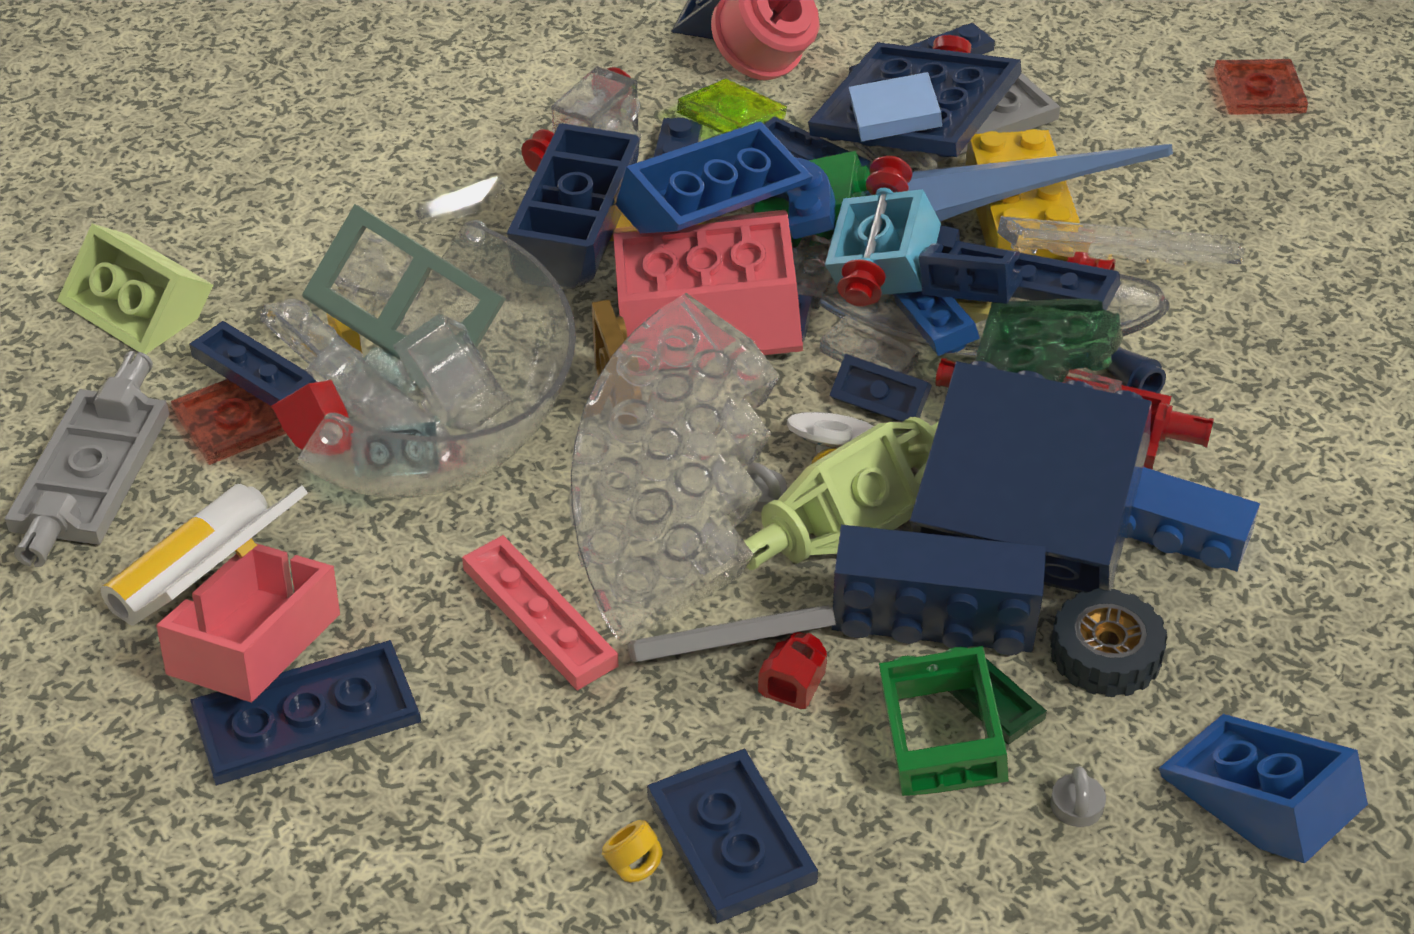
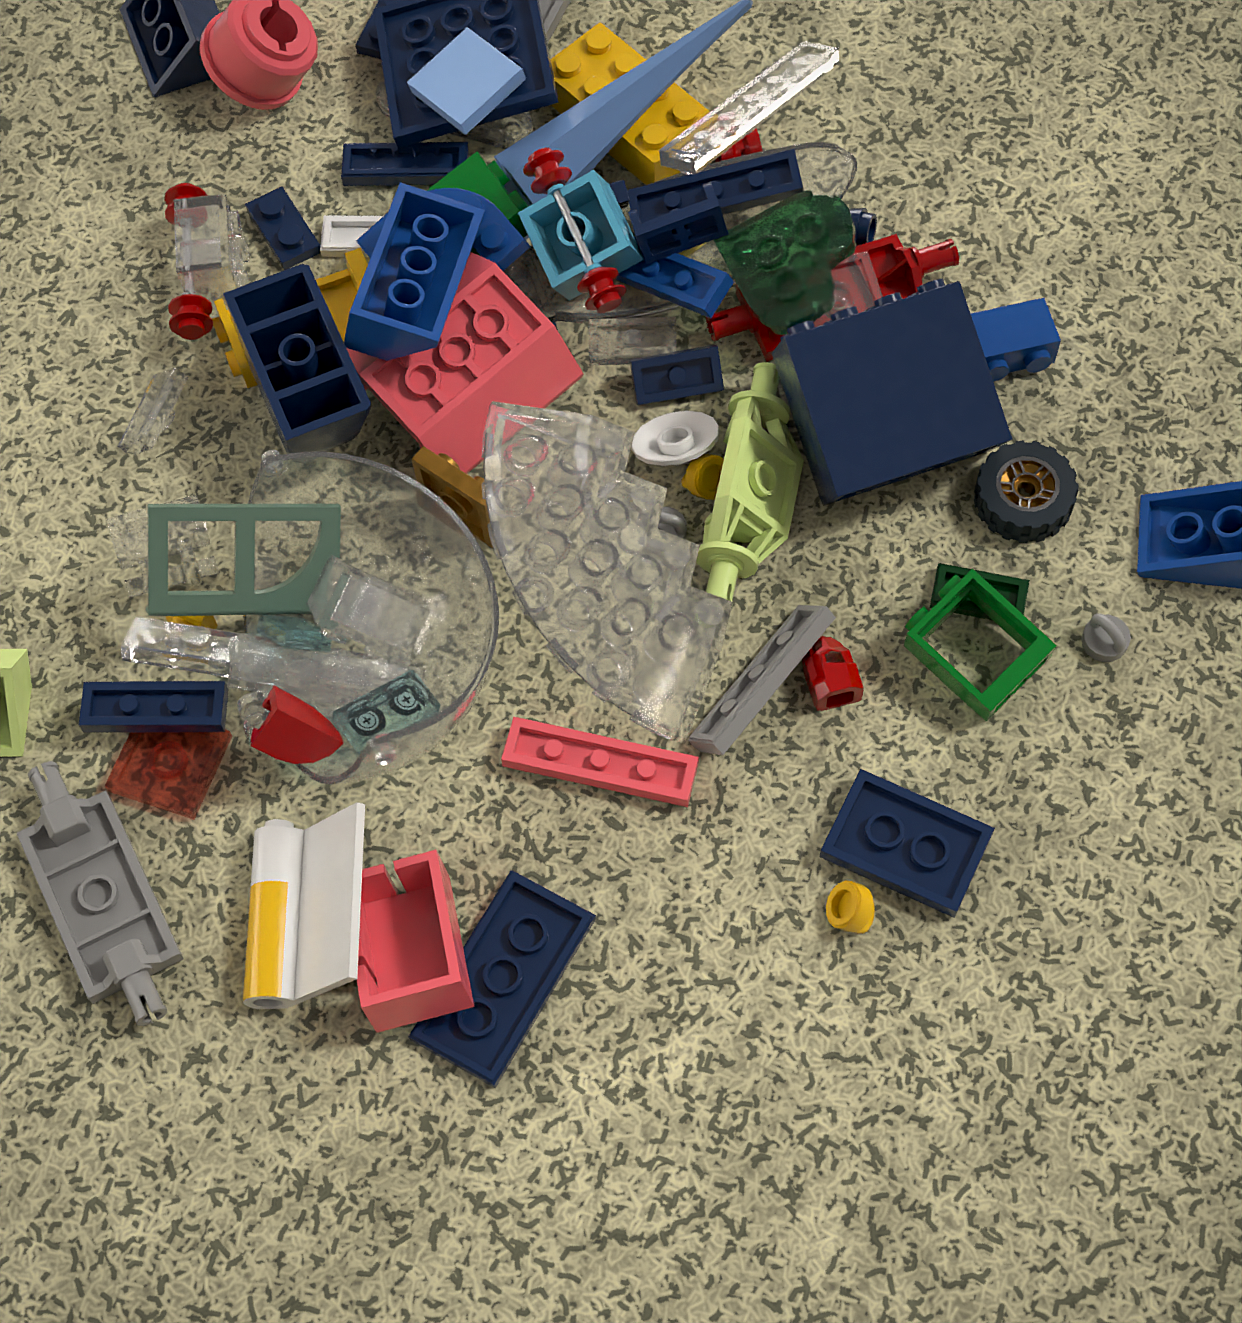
camera: 35 degrees left, 20 degrees up
(728, 106) = (296, 157): clear neon green tile -> none
(938, 589) = (890, 537): dark blue brick -> none

